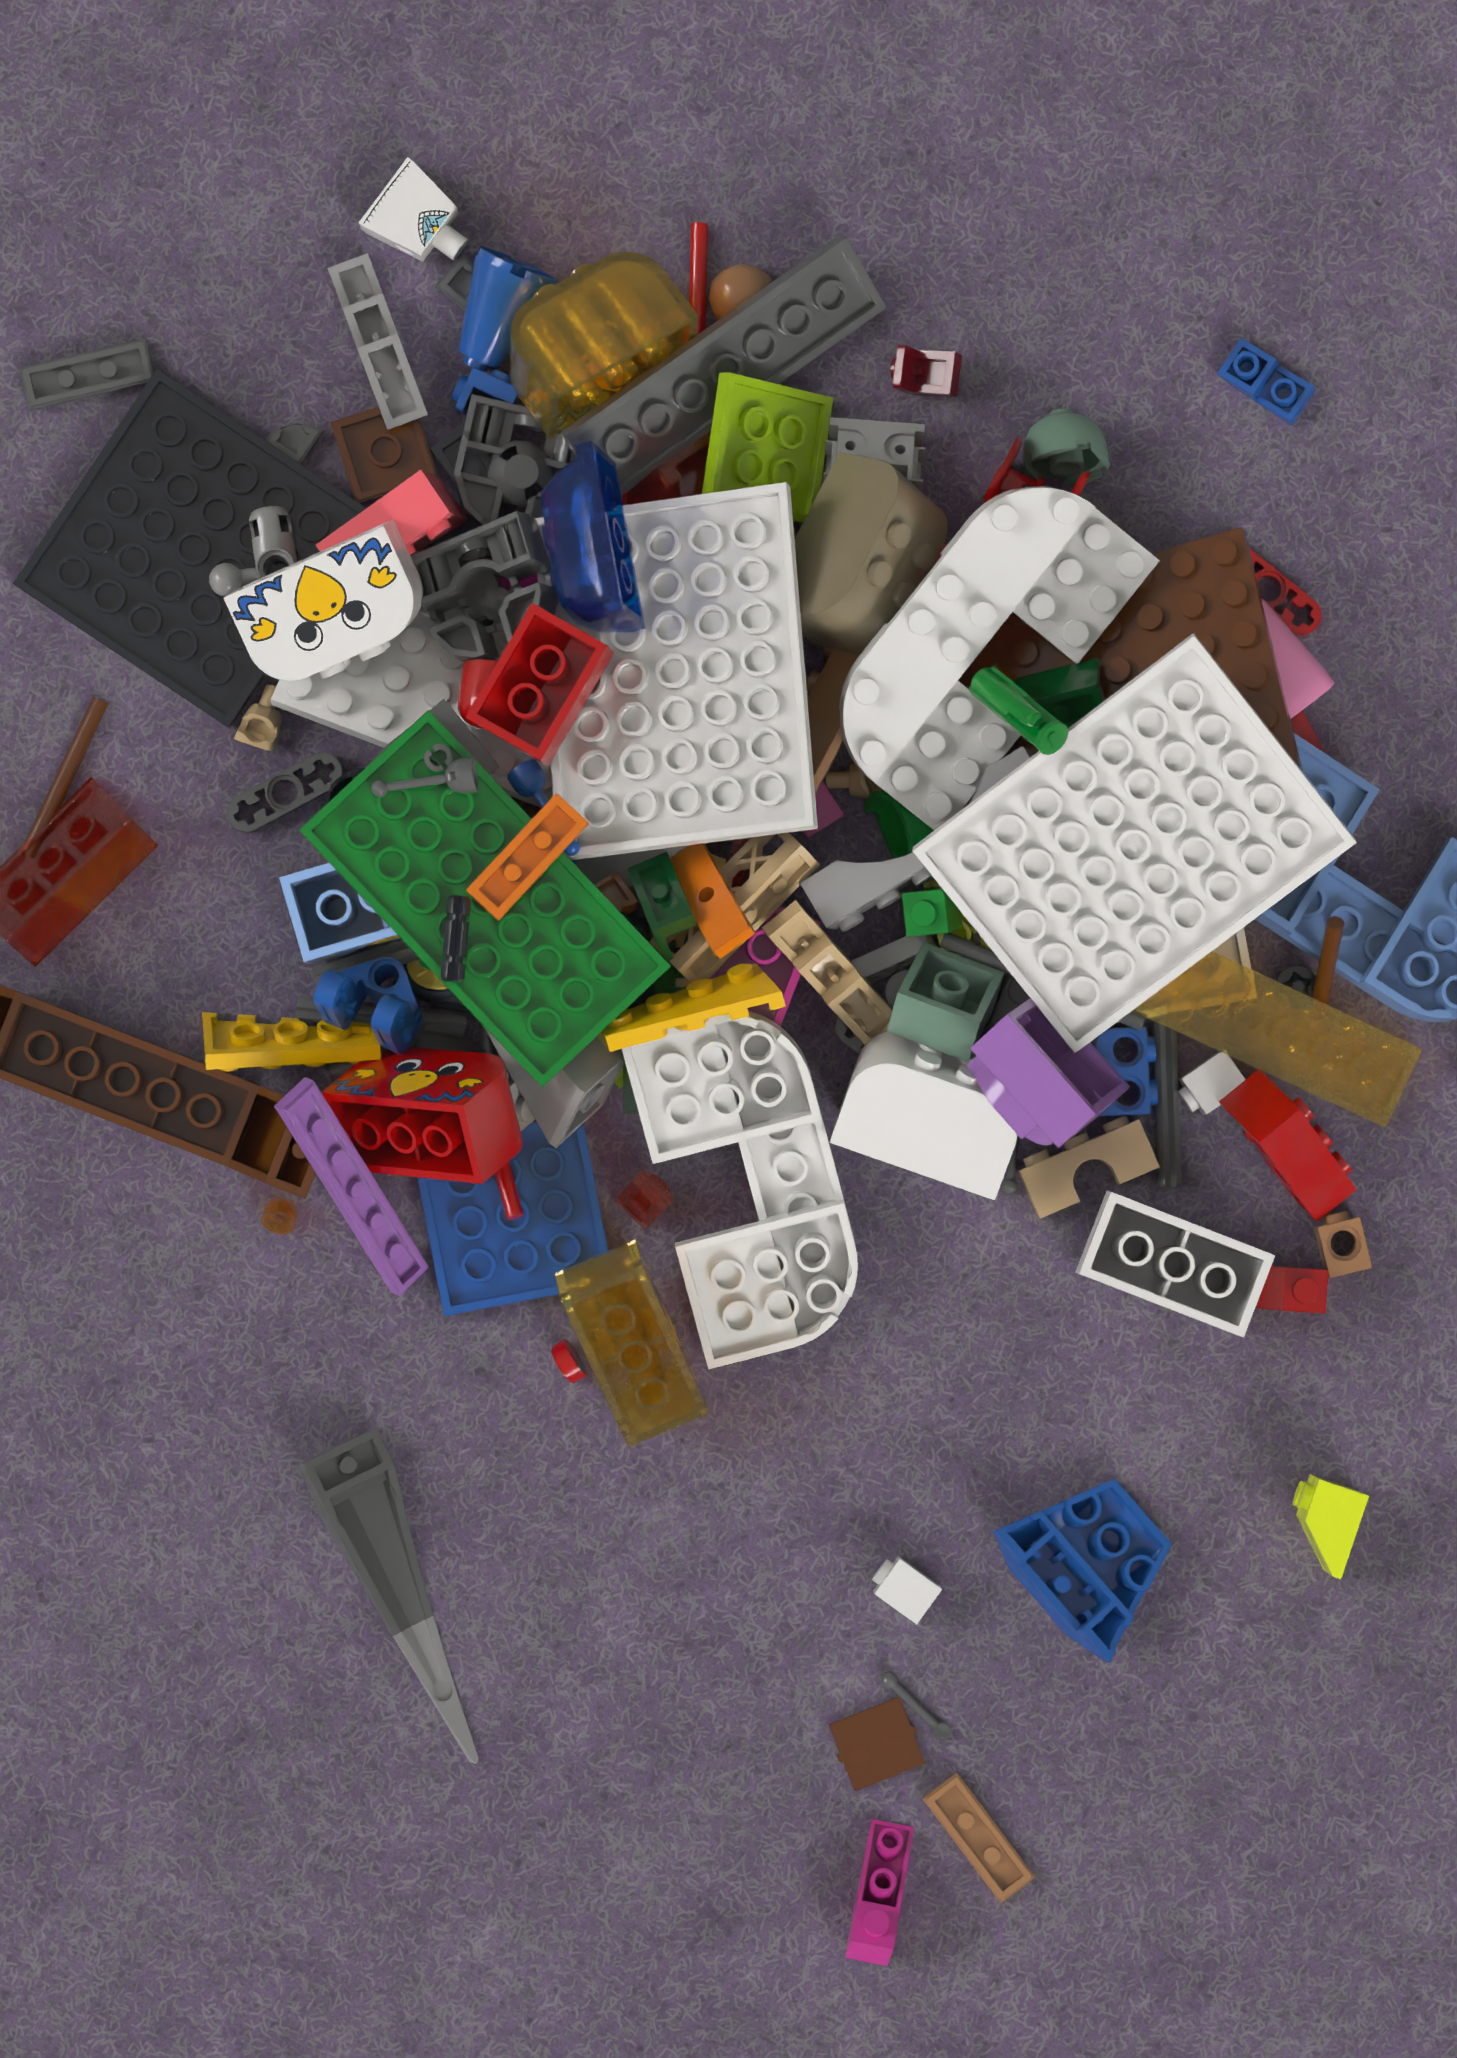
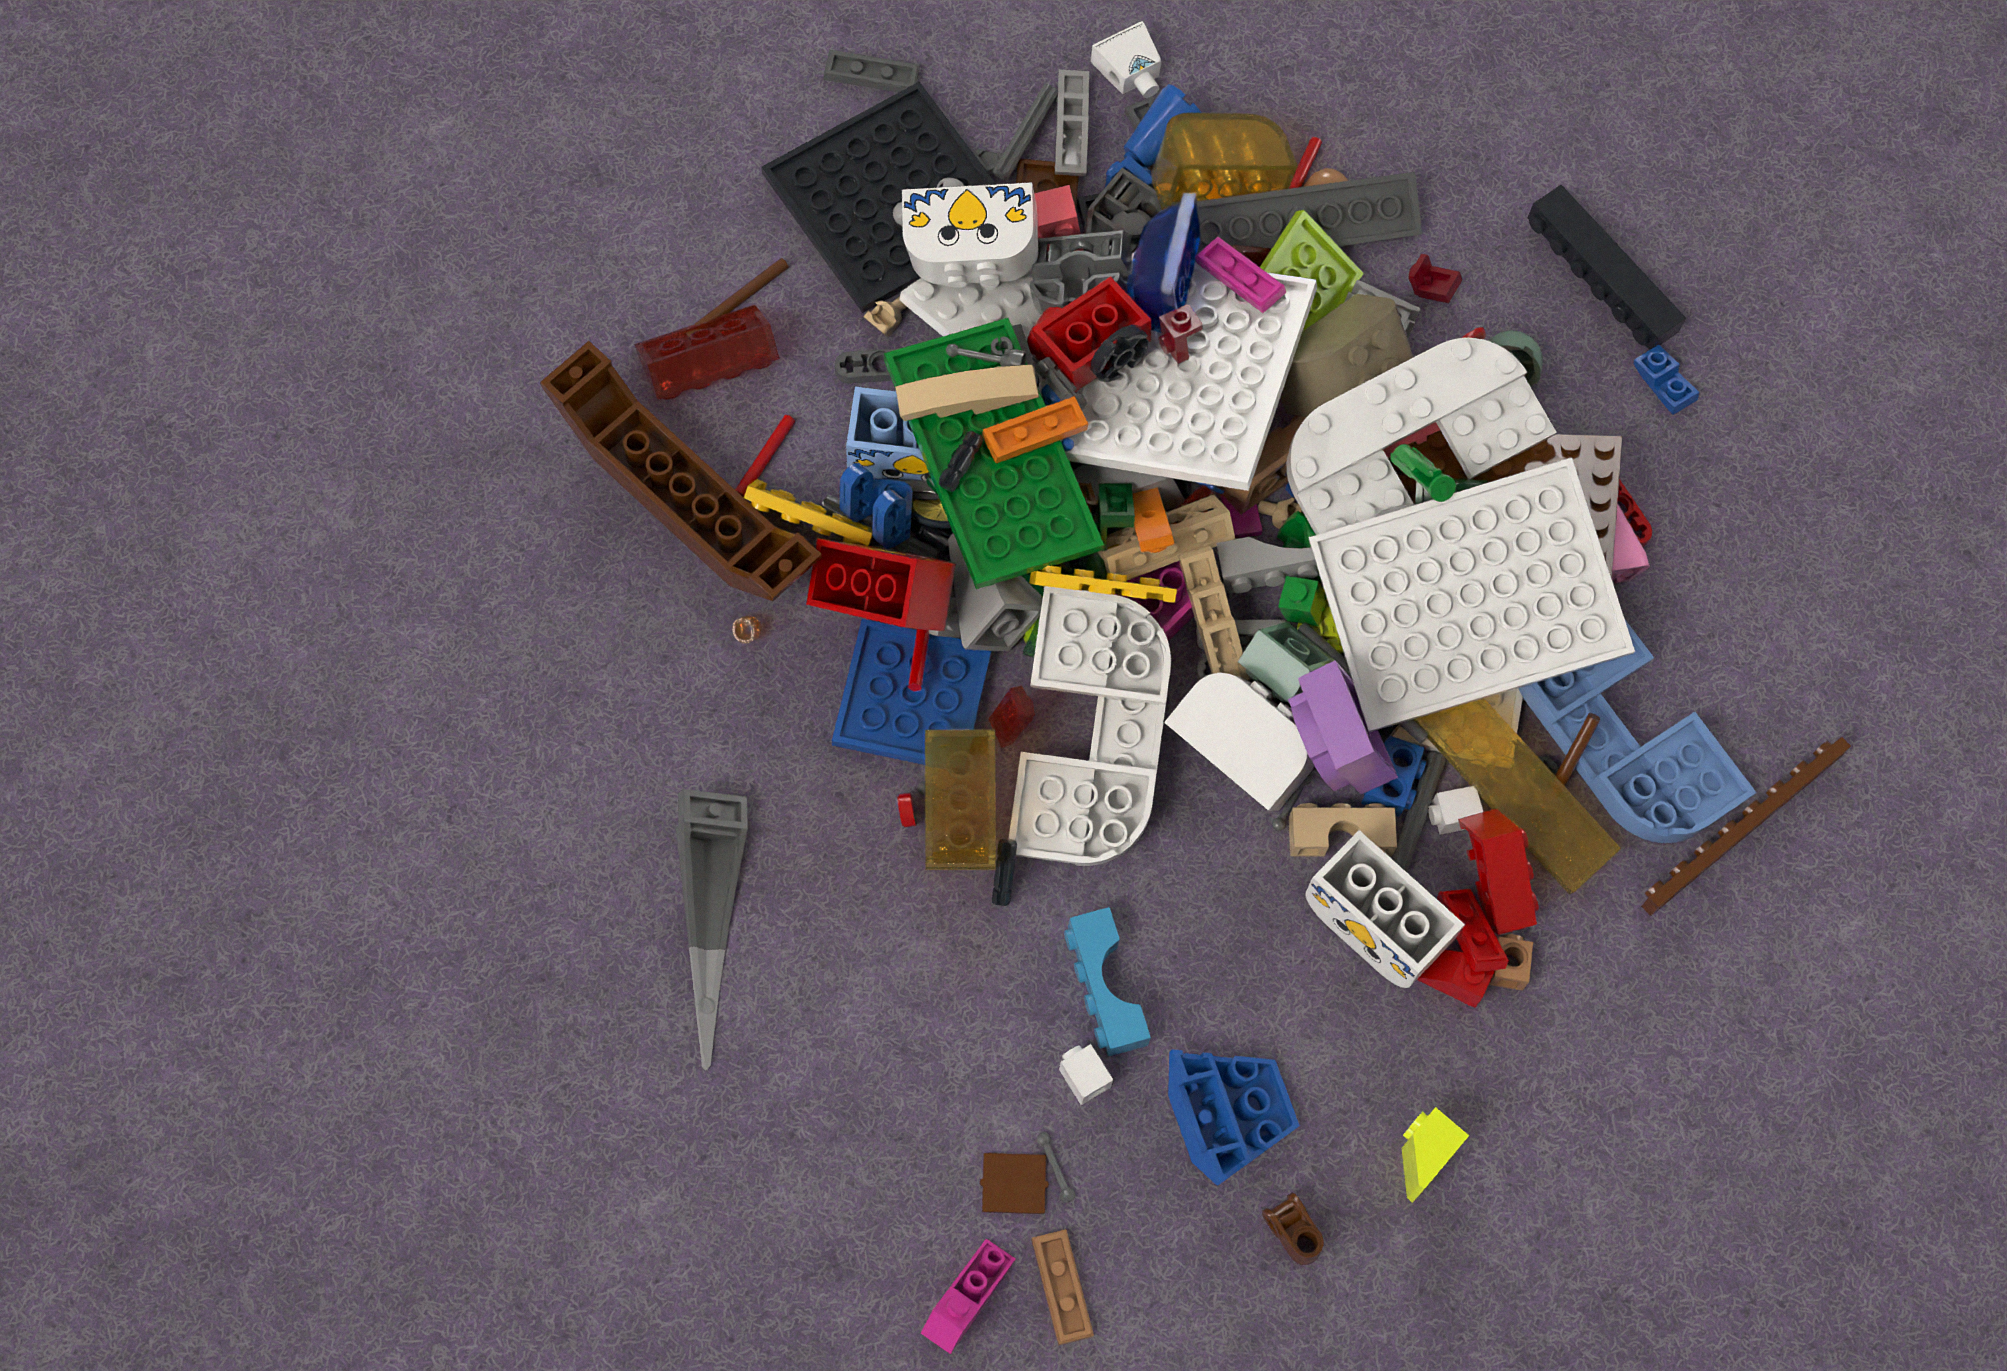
camera: 20 degrees right, 20 degrees down
(197, 977) = (766, 454): none -> red bar
(324, 381) = (1025, 132): none -> dark grey axle
(351, 1186) = (809, 610): medium lavender tile -> none
(425, 846) = (967, 390): none -> tan slope
(530, 770) = (1059, 381): none -> dark grey axle
(581, 710) = (1128, 350): none -> black piece
(646, 636) = (1175, 329): none -> dark red bracket
(688, 512) = (1240, 274): none -> dark pink tile
(715, 1392) = (1004, 872): none -> black axle
(922, 1513) = (1119, 1022): none -> dark azure arch
(1136, 257) = (1605, 268): none -> black brick
(1209, 1664) = (1294, 1226): none -> reddish brown piece
(1284, 1231) = (1476, 936): none -> red tile

